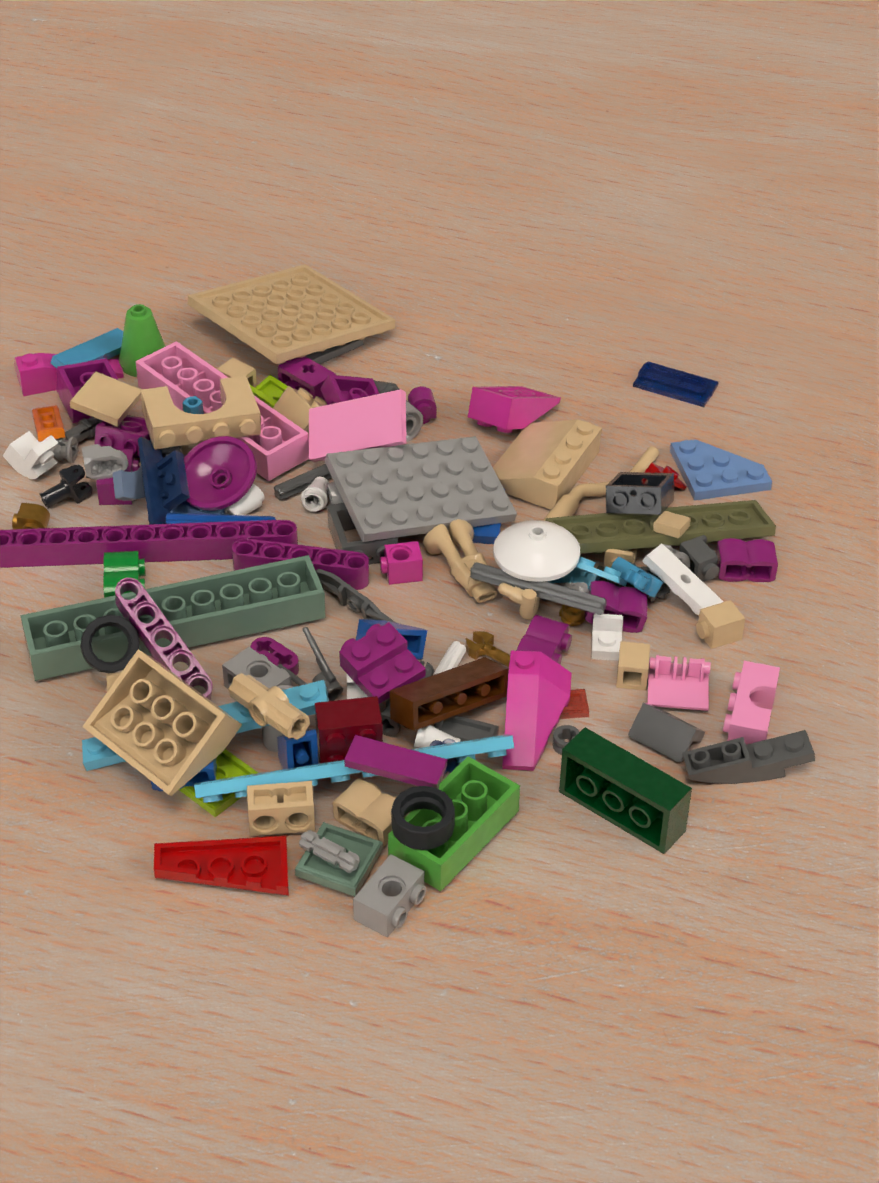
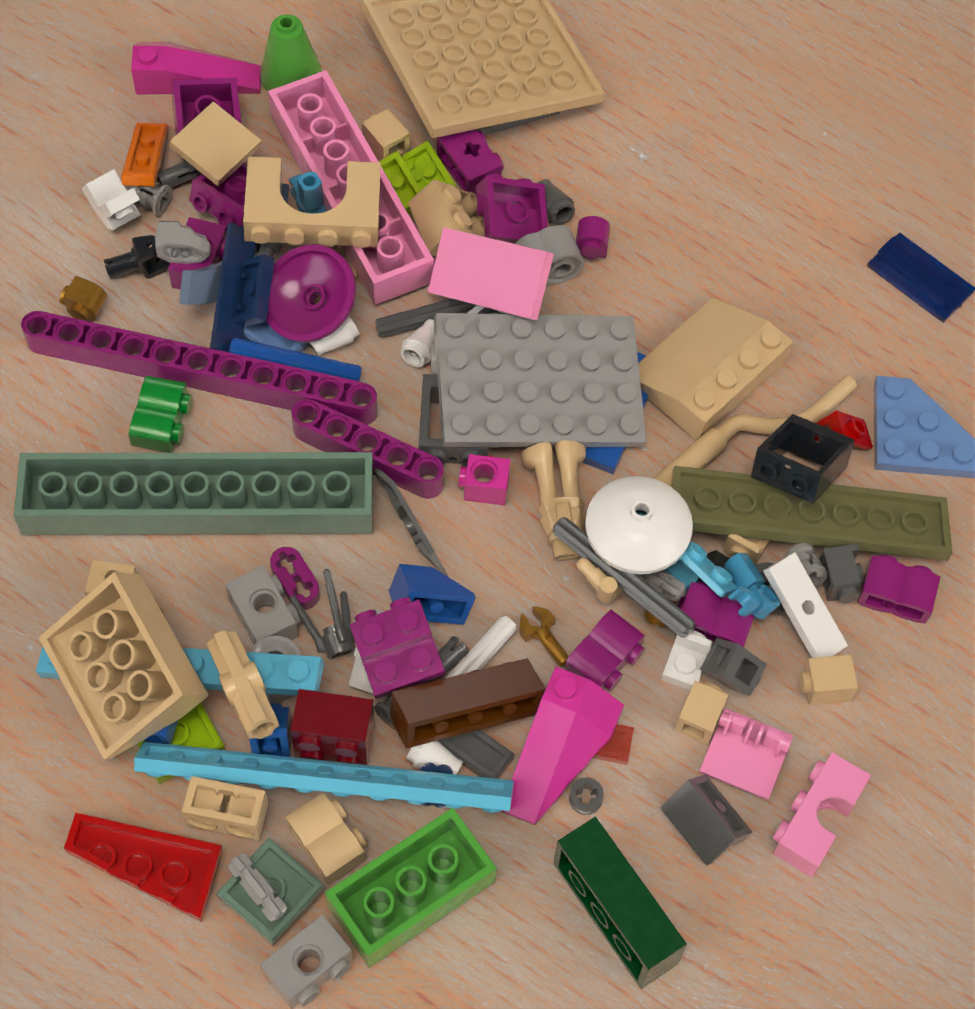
camera: 15 degrees right, 20 degrees up
(97, 624) = (94, 551): black tyre -> none
(98, 348) = (225, 54): dark azure tile -> none
(158, 629) = (150, 527): magenta beam -> none
(395, 762) = (364, 799): magenta tile -> none
(423, 798) = (357, 861): black tyre -> none
(509, 406) = (700, 267): dark pink slope -> none
(646, 627) = (733, 666): none -> dark grey brick
(671, 524) = (821, 521): tan tile -> none
(741, 763) = (785, 894): dark grey slope -> none

